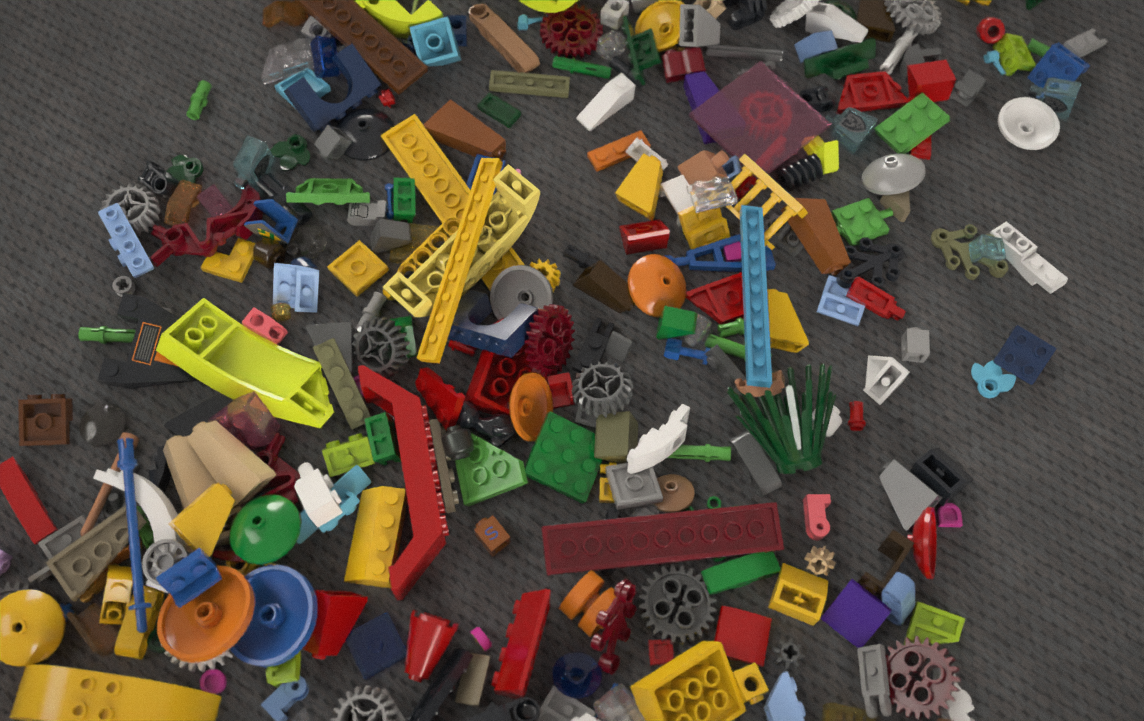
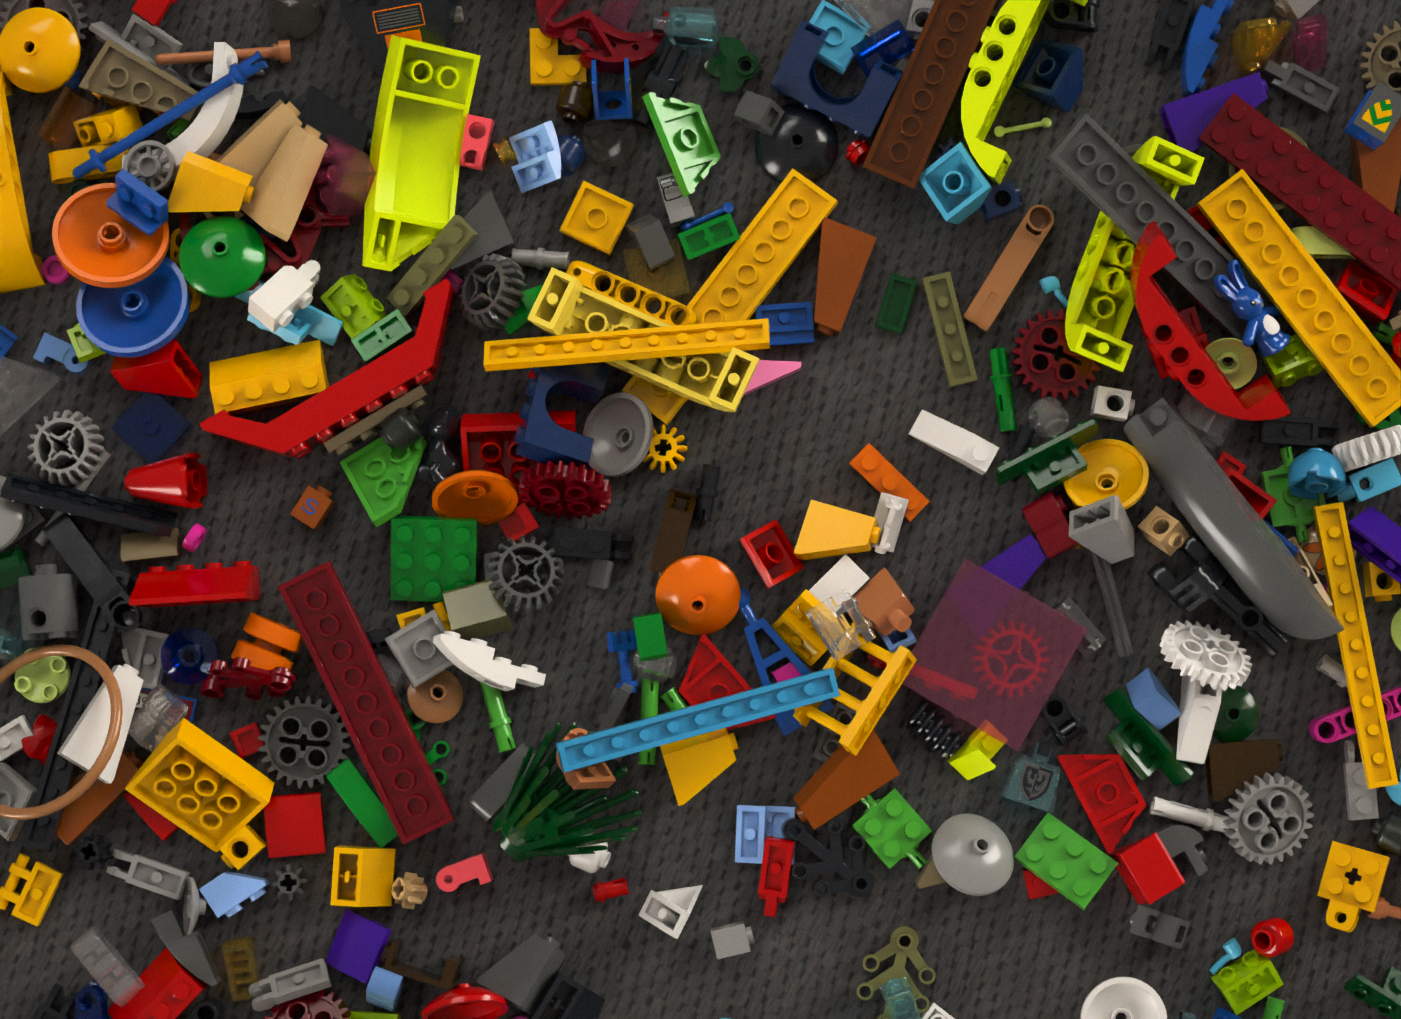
camera: 70 degrees right, 20 degrees up
(440, 397) = (436, 401): red wing -> none

